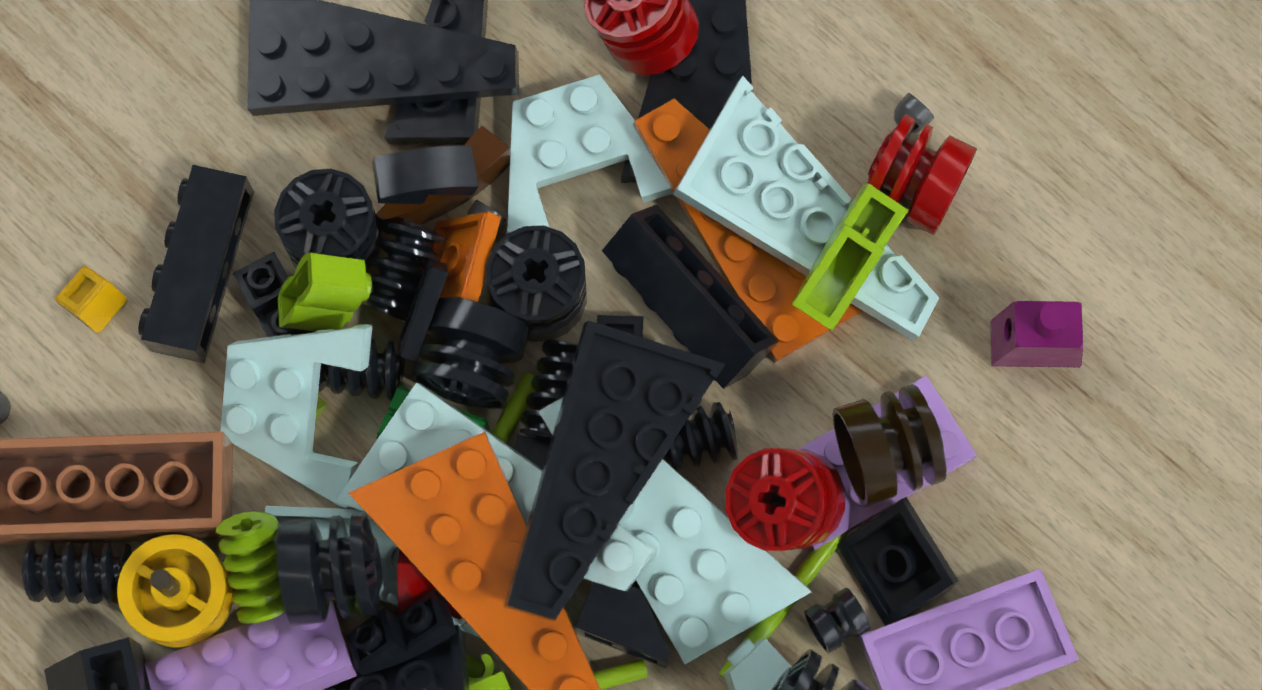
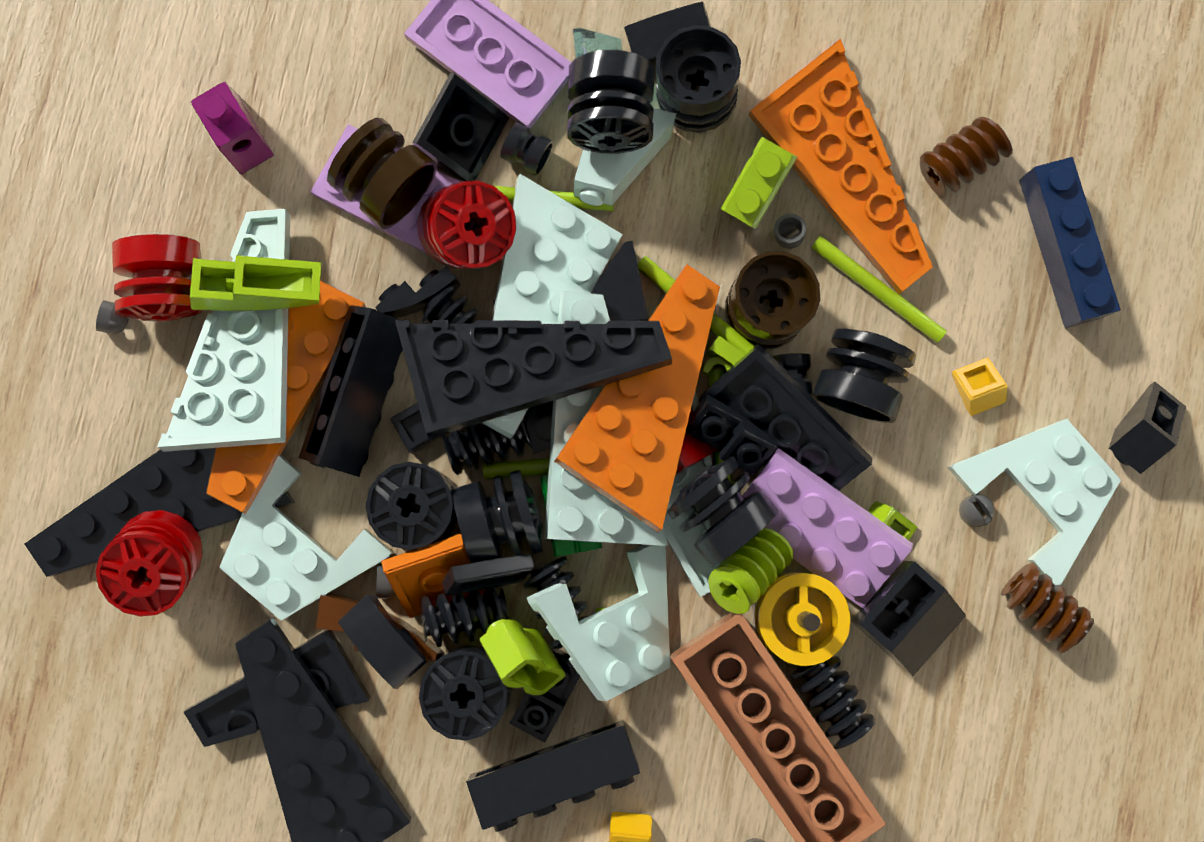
camera: 120 degrees left, 10 degrees up
(753, 406) = (404, 301): none -> black slope

